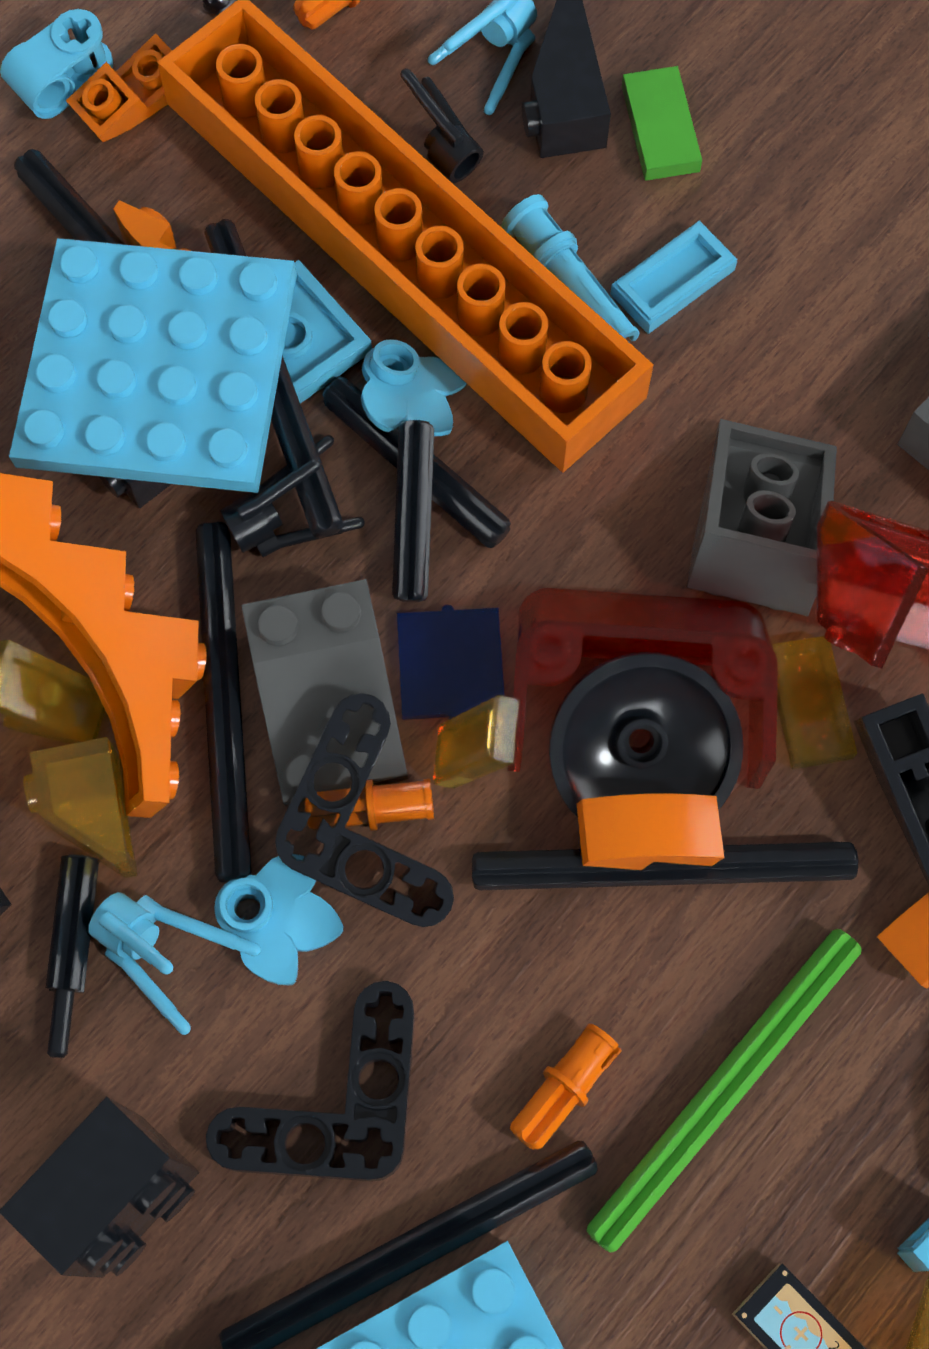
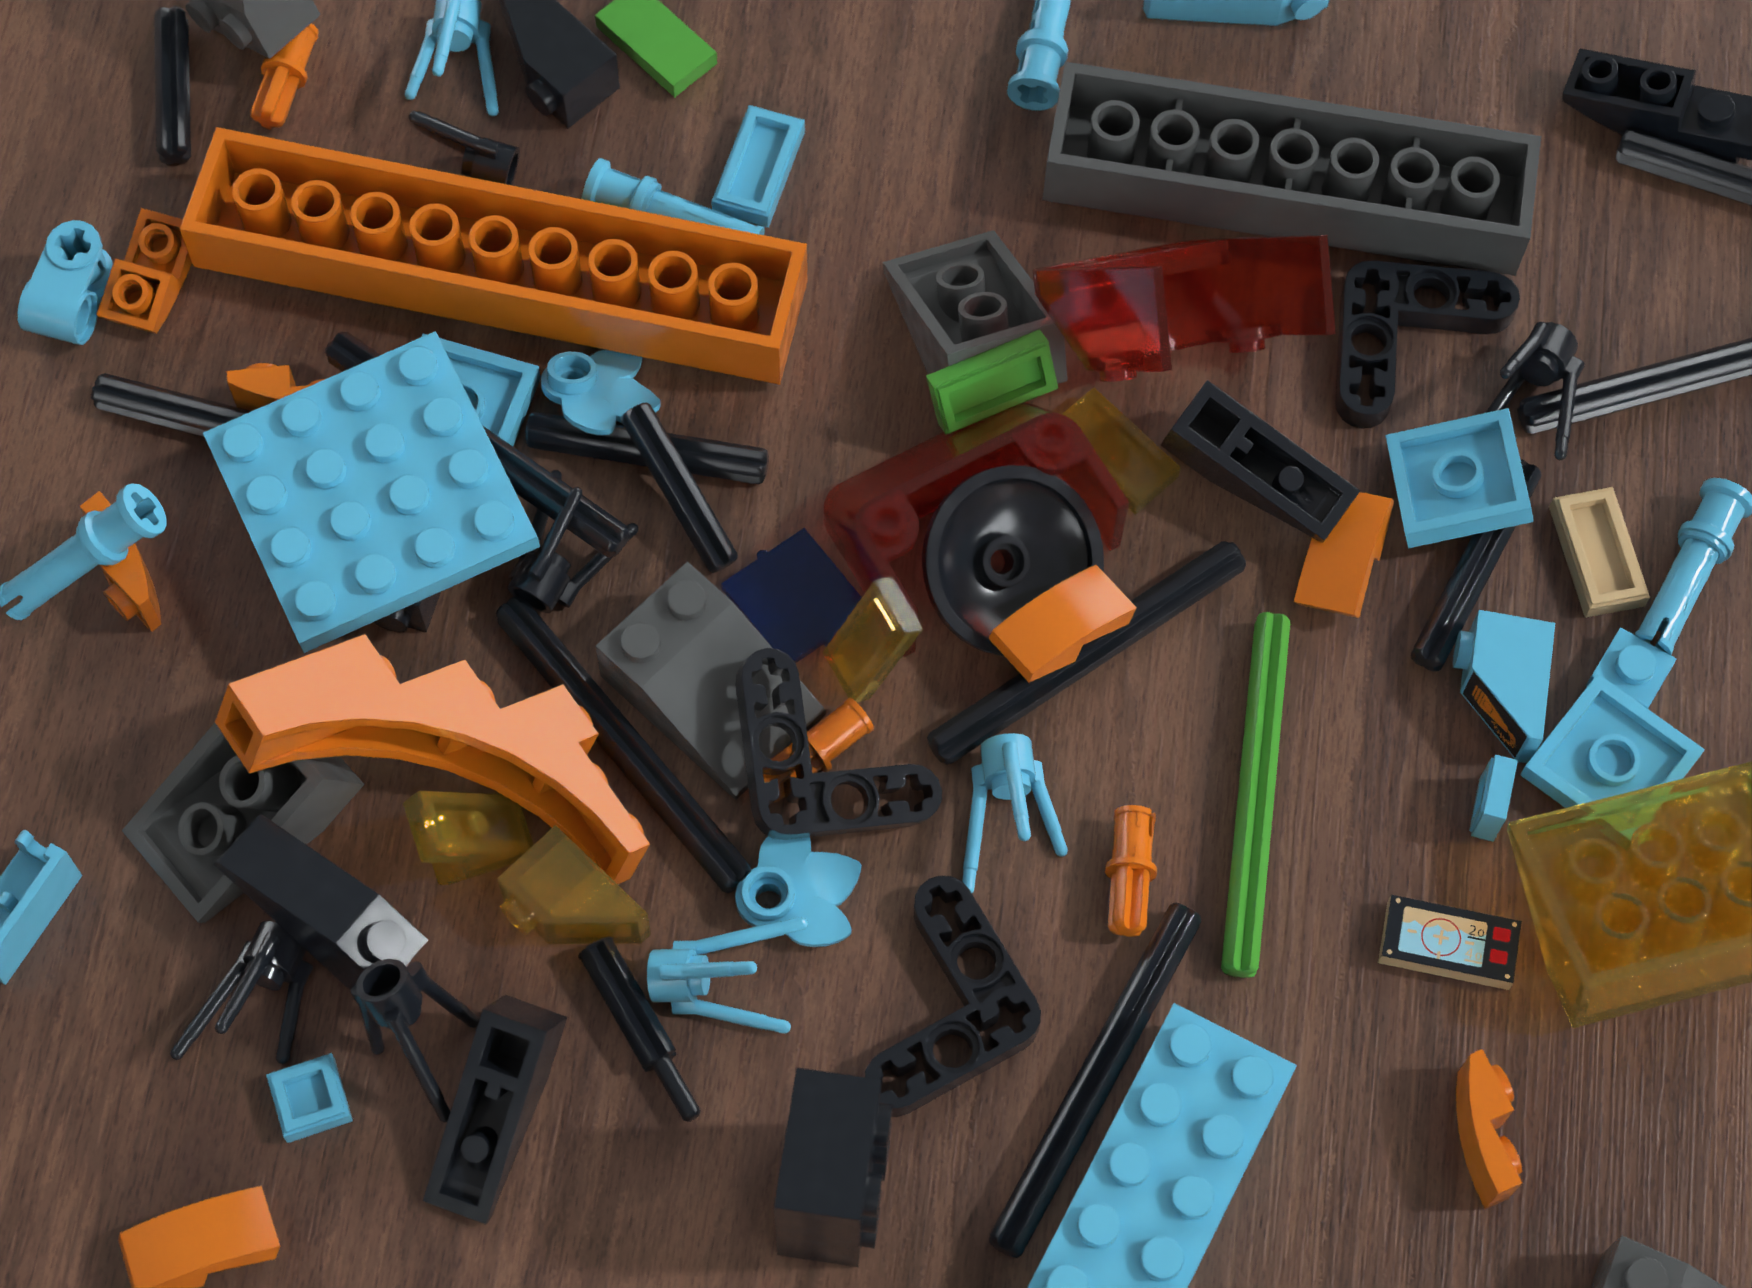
camera: 35 degrees left, 5 degrees down
(520, 929) = (1011, 774): none -> medium azure plant
(735, 578) = (992, 381): none -> bright green tile

